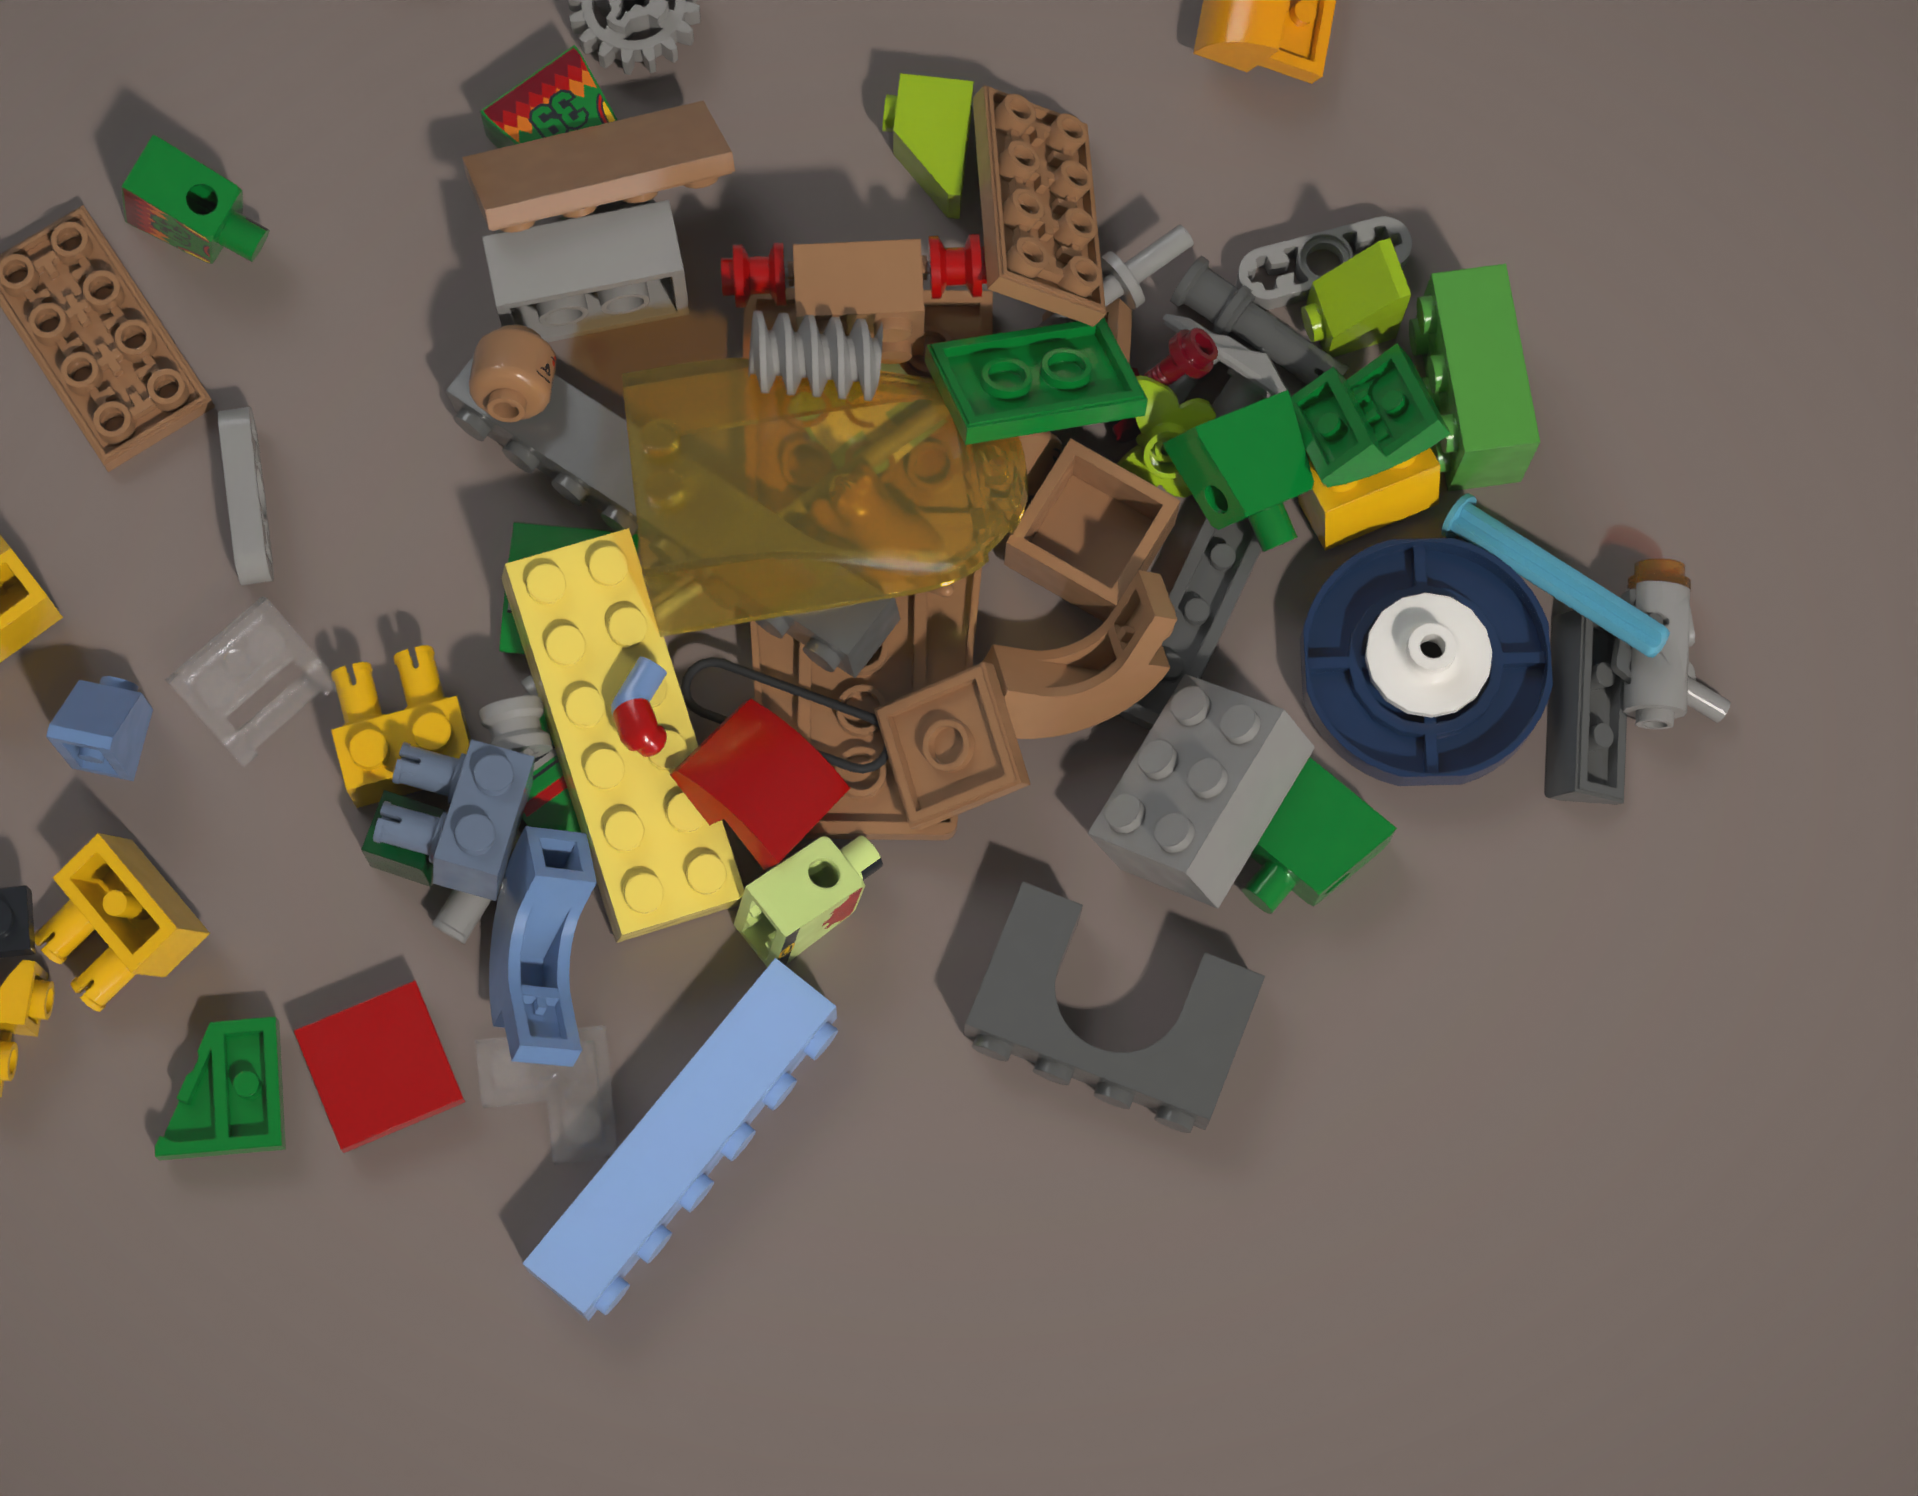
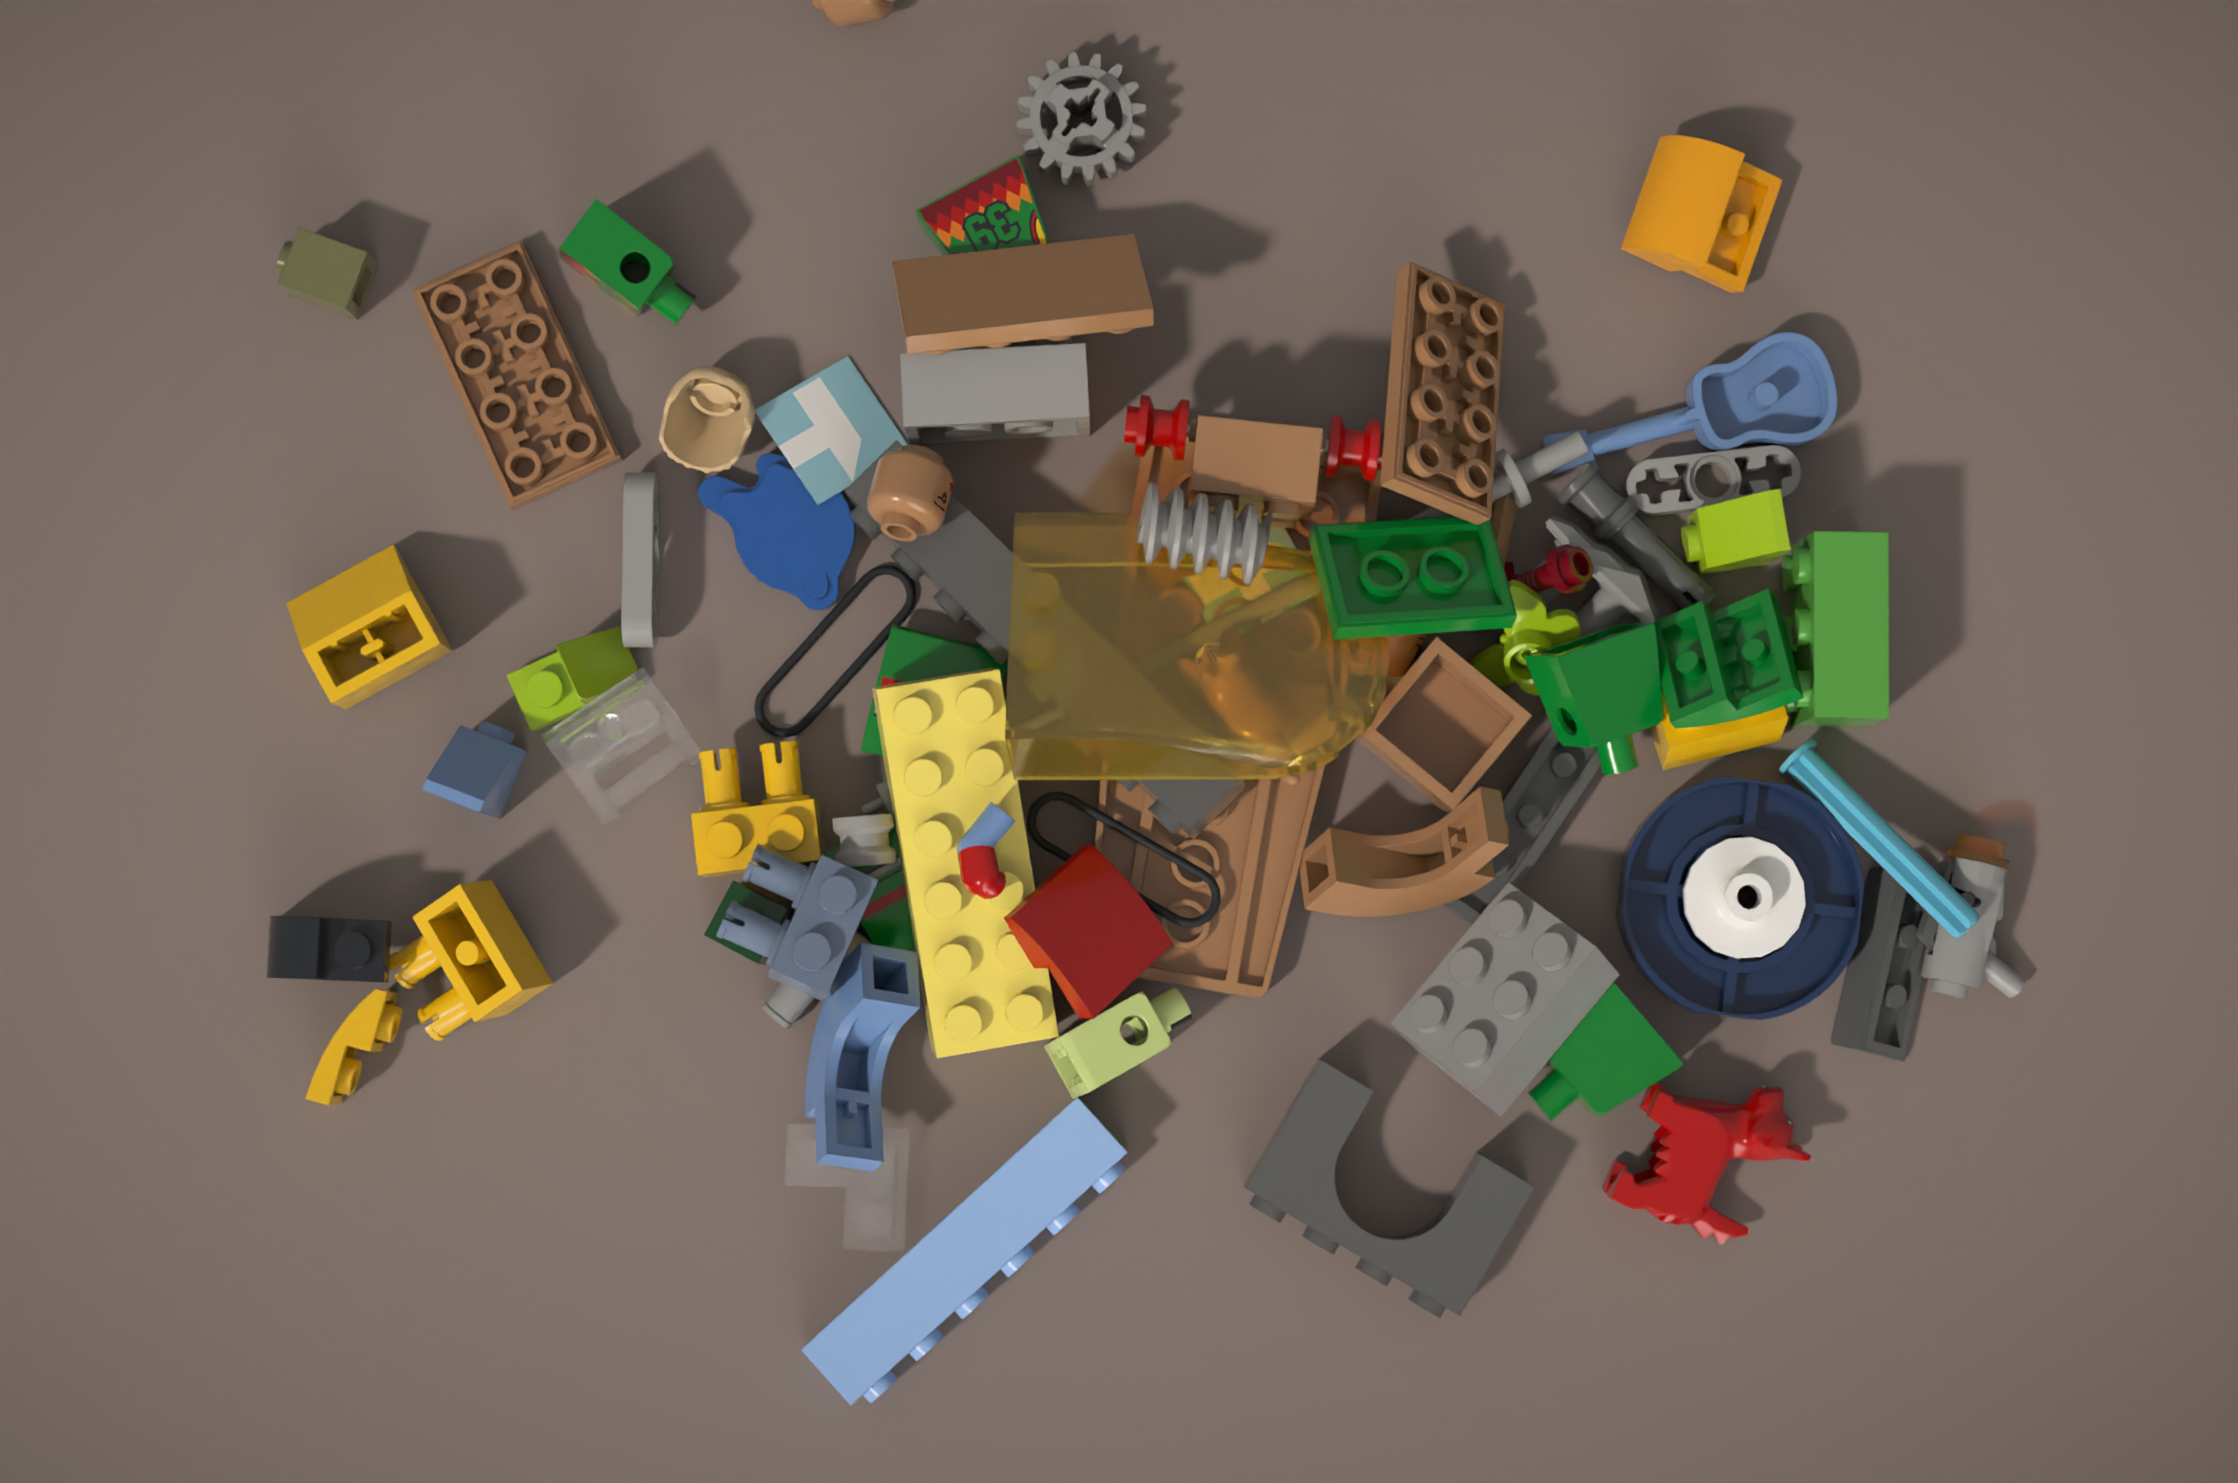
camera: 10 degrees right, 10 degrees up
(187, 622) = (571, 677): none -> lime slope
(230, 1095) = (553, 1140): green wing -> none
(295, 345) = (707, 419): none -> tan hair
(379, 1066) = (694, 1135): red tile -> none
(397, 439) = (784, 532): none -> blue tile
(419, 340) = (829, 428): none -> medium azure sticker
(437, 547) = (816, 633): none -> black piece
(932, 134) = (1352, 295): lime slope -> none
(952, 746) = (1275, 921): medium nougat tile -> none
(1363, 171) = (1767, 397): none -> medium blue piece
(1424, 919) = (1693, 1151): none -> red animal

